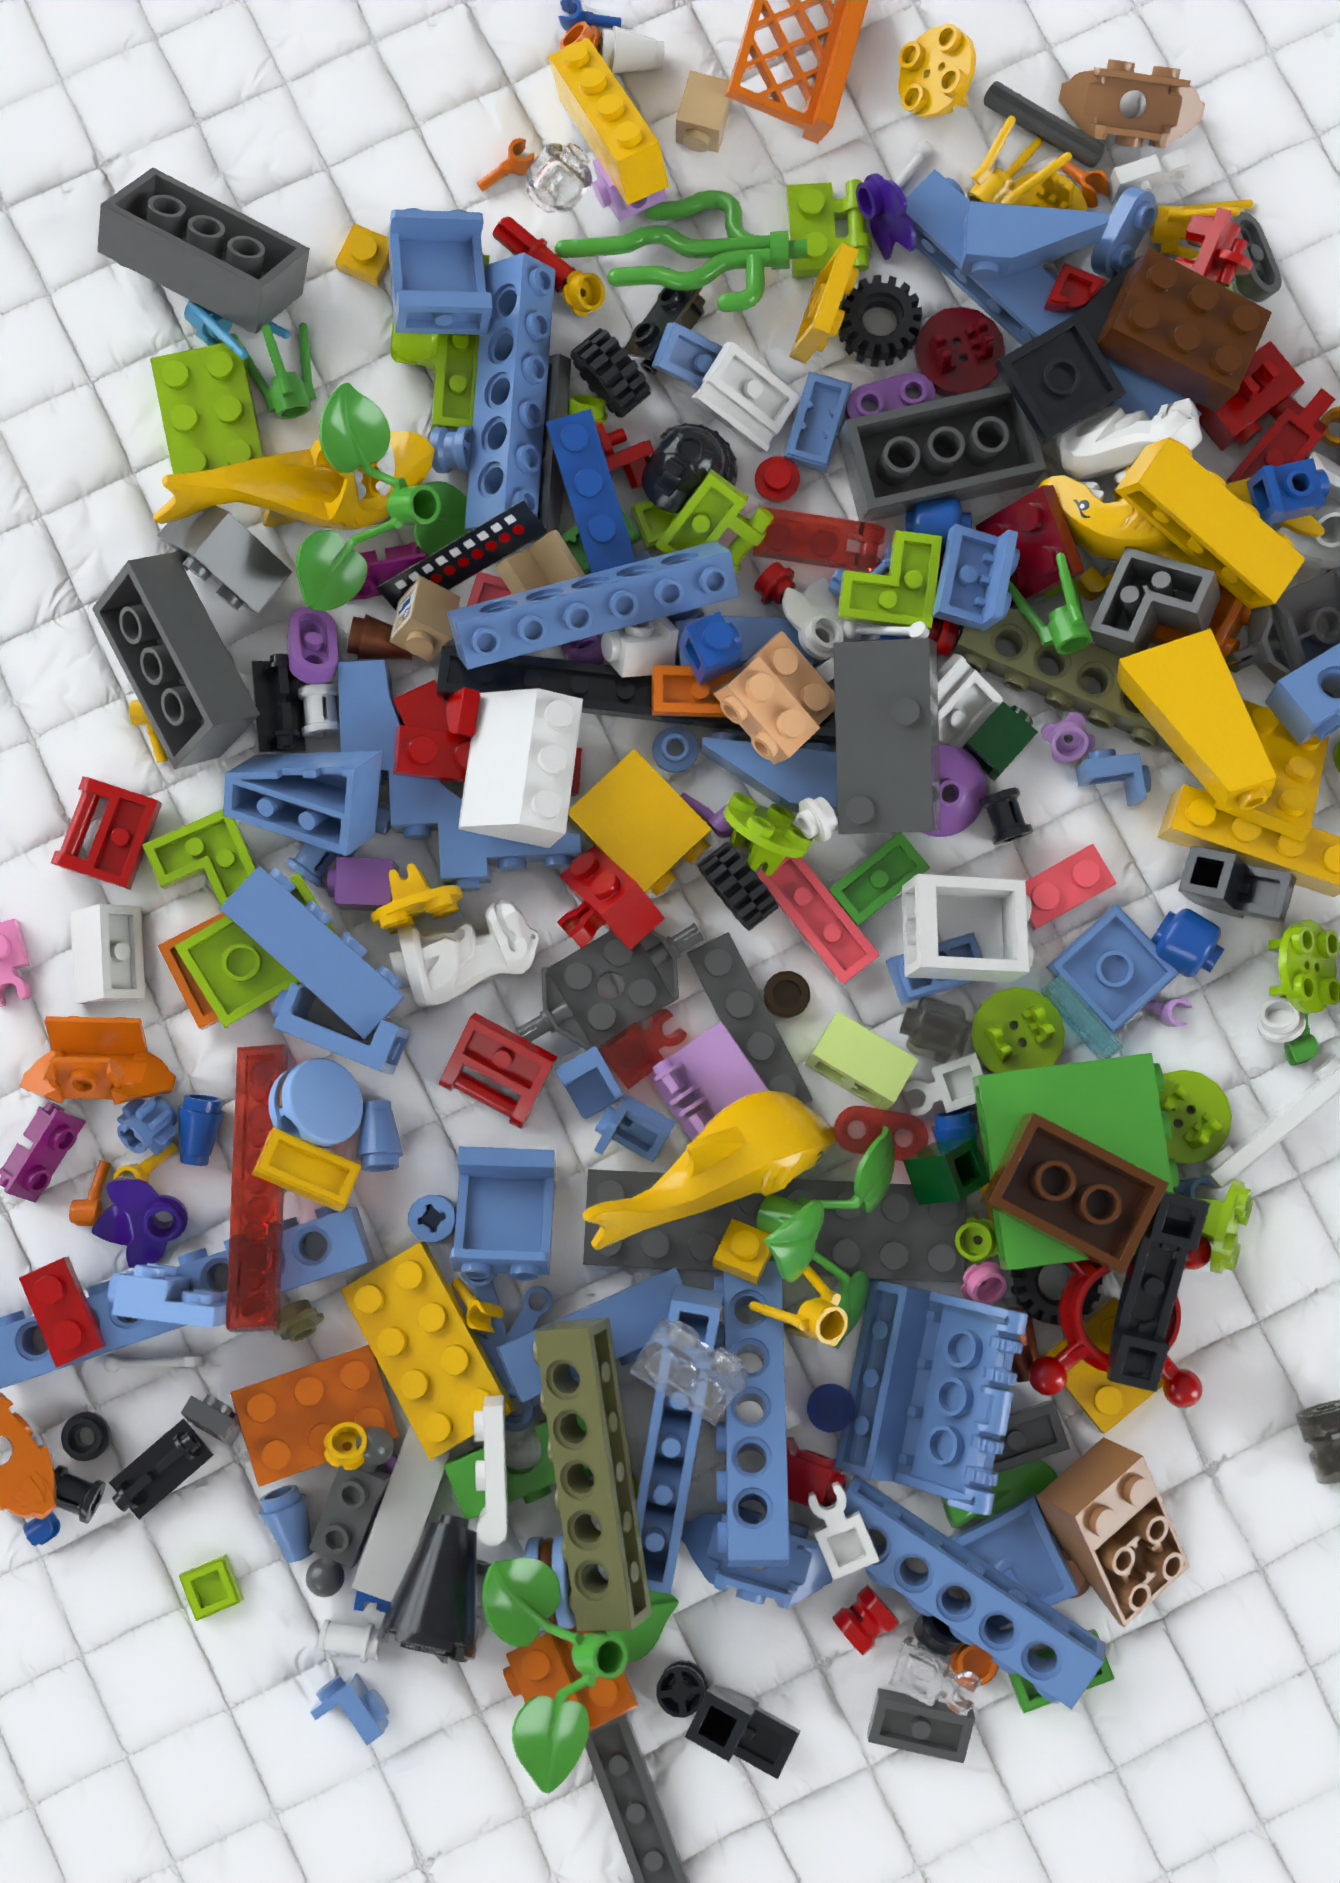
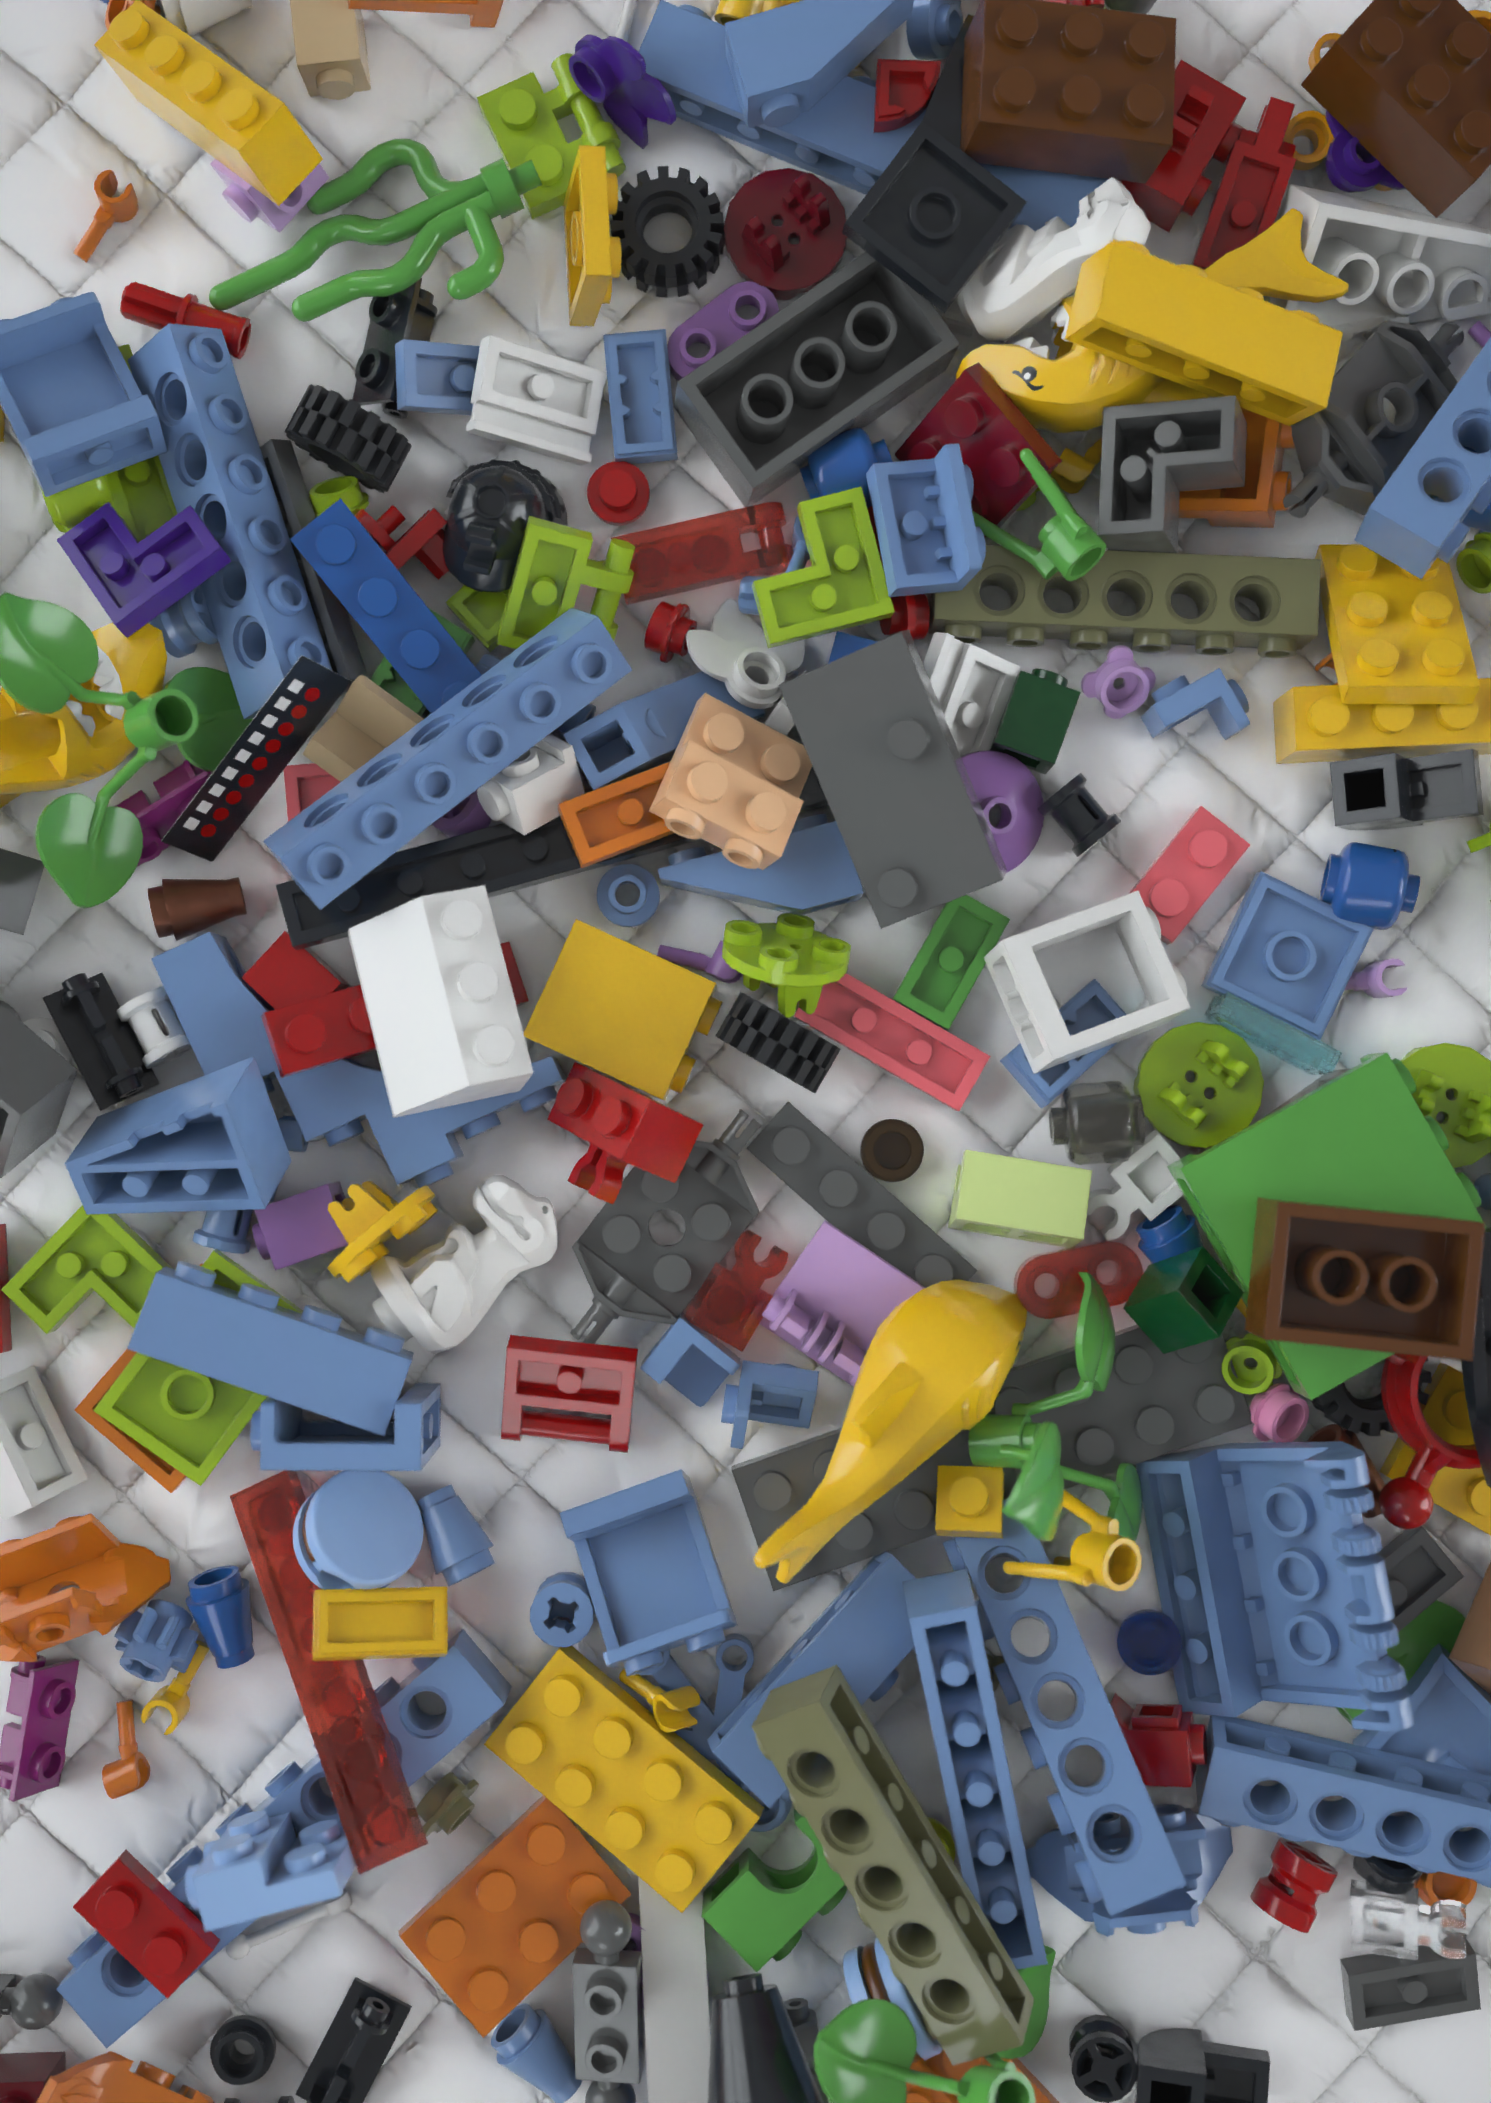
camera: 25 degrees left, 5 degrees up
(134, 1223) = (192, 1762): dark purple plate -> none
(213, 1418) = (389, 1978): dark grey plate -> none
(312, 645) = (111, 950): medium lavender plate -> none
(339, 1436) = (554, 1945): yellow plate -> none
(422, 619) = (236, 861): tan brick -> none
(438, 409) = (144, 577): none -> dark purple plate
(463, 711) = (338, 962): red tile -> none
(492, 1471) = (766, 1907): white plate -> none
(558, 177) = (176, 204): clear head -> none
(591, 289) = (280, 337): yellow plate -> none
(690, 1370) = (968, 1698): clear bracket -> none
(711, 647) = (623, 753): blue brick -> none
(816, 819) = (845, 919): white plate -> none
(843, 1538) = (1233, 1810): white plate -> none
(916, 630) = (879, 625): white hinge -> none
(1201, 716) = (1288, 593): yellow slope -> none
(1277, 498) = (1286, 249): blue brick -> none

